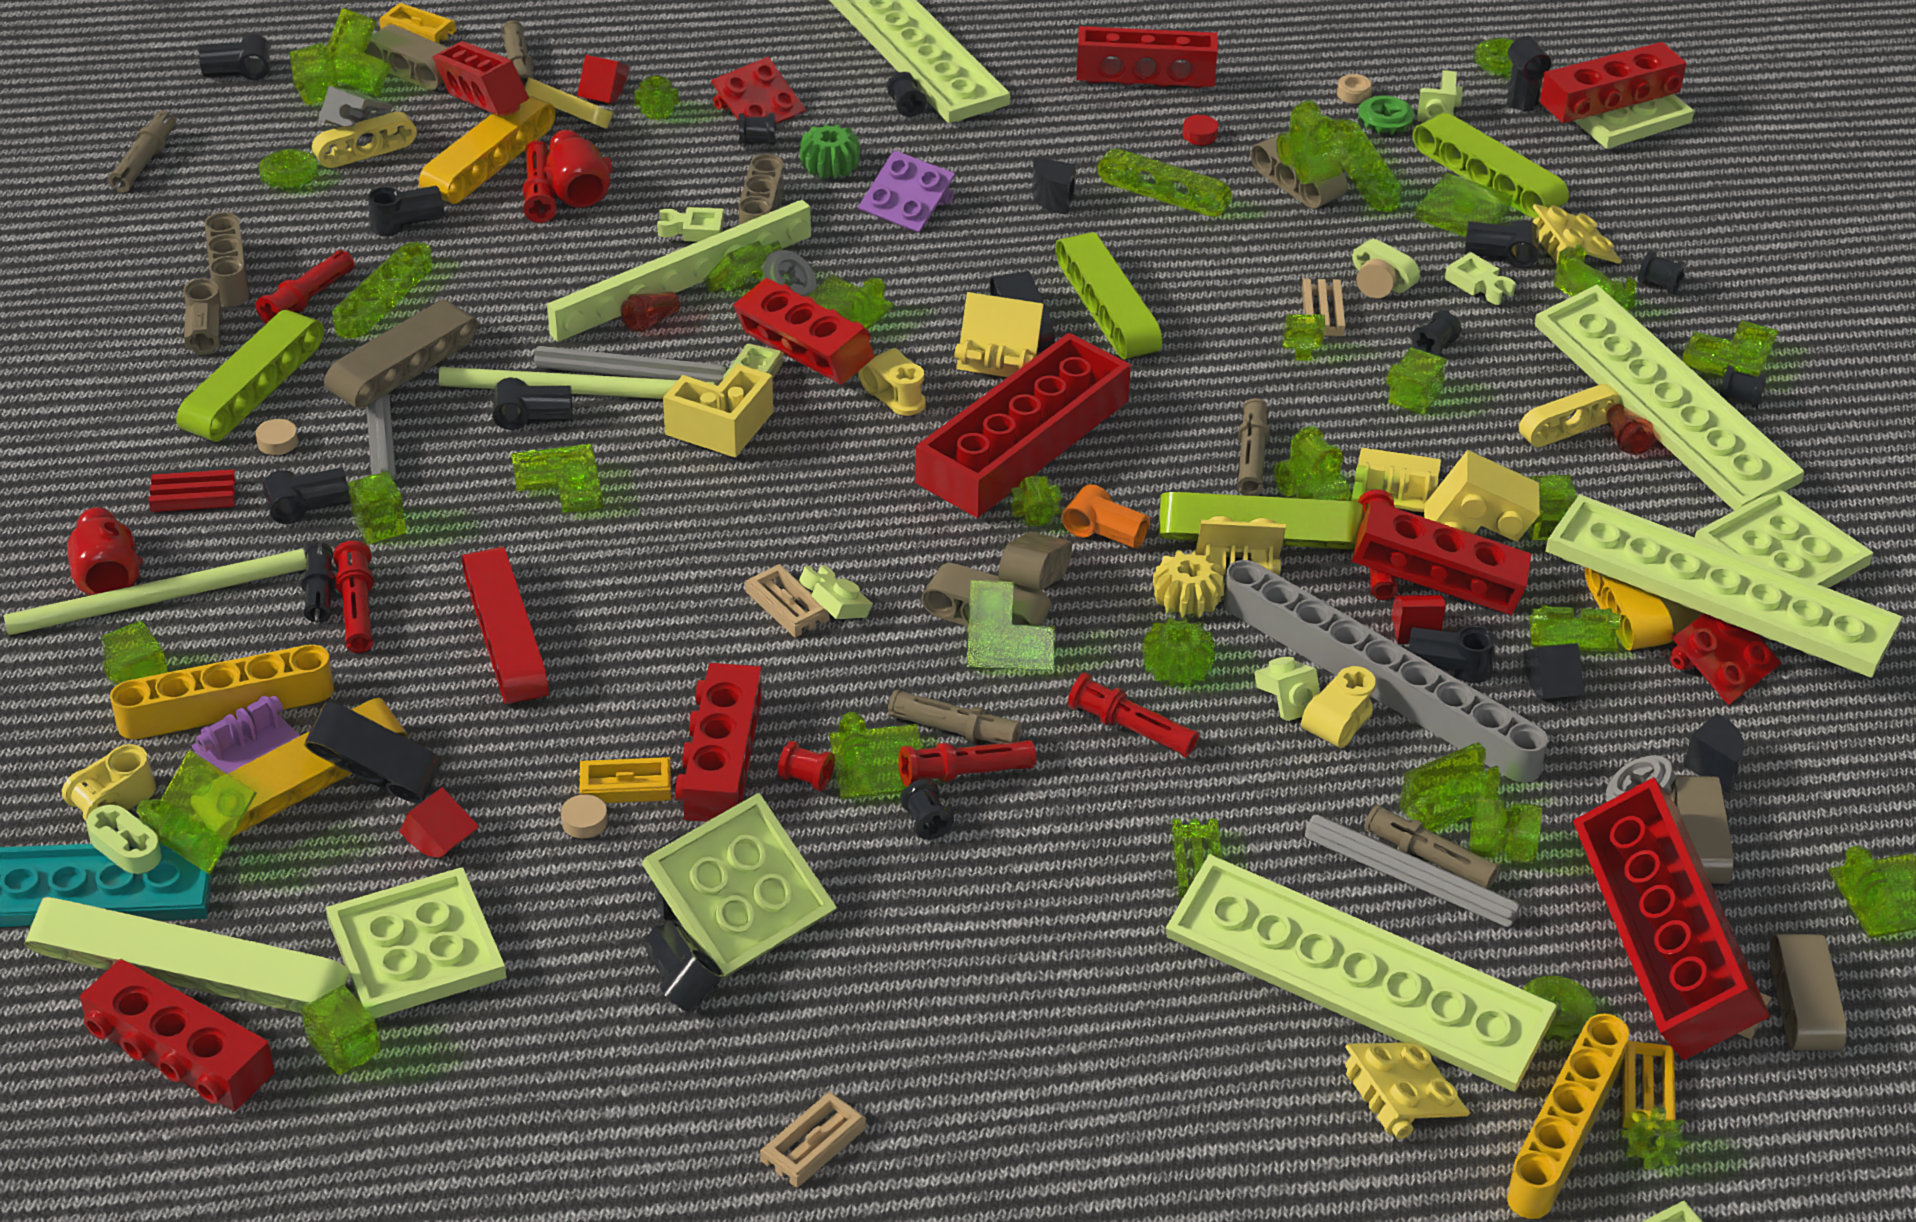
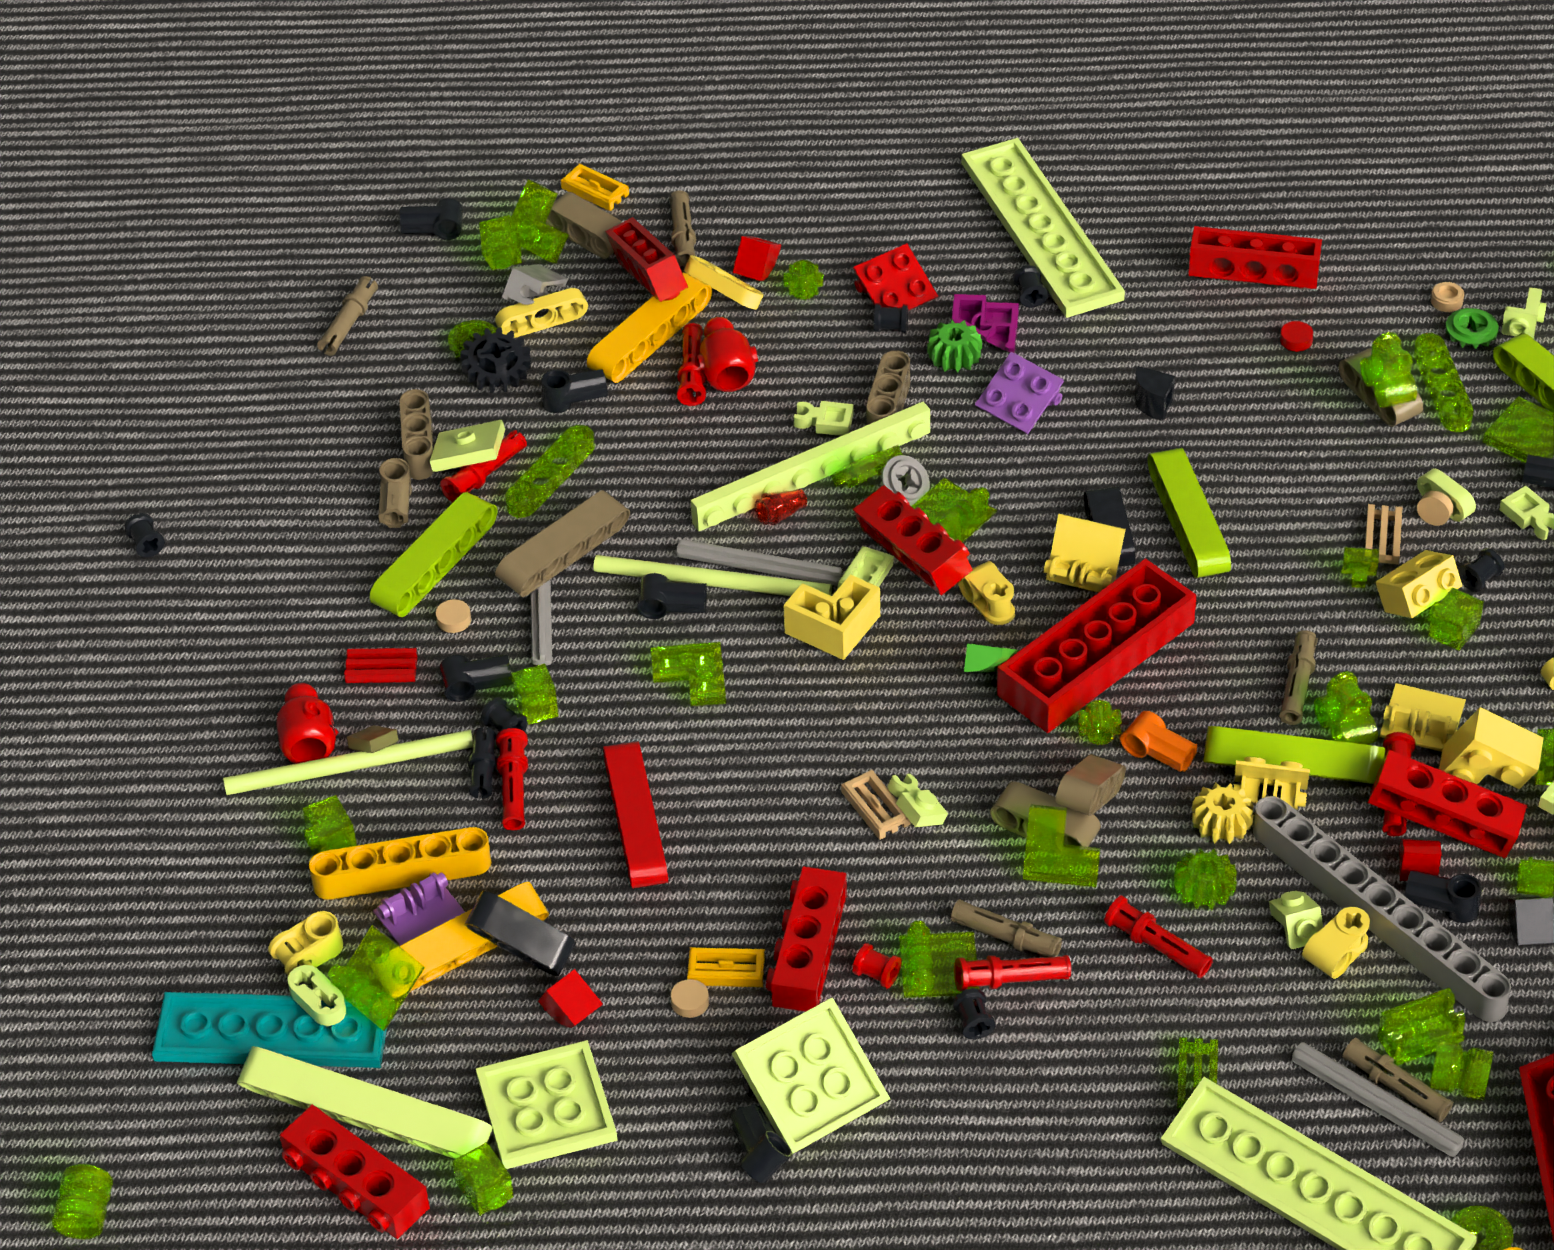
camera: 10 degrees right, 5 degrees up
(184, 564) = (372, 739): none -> olive tile
(285, 266) = (467, 445): none -> yellowish green plate
(314, 184) = (495, 360): none -> black gear
(334, 530) = (502, 717): none -> black bush
(873, 127) = (992, 320): none -> magenta slope
(899, 439) = (986, 658): none -> bright green slope
(1164, 187) = (1288, 409): clear neon green beam -> none
(1371, 347) = (1418, 583): none -> light yellow brick

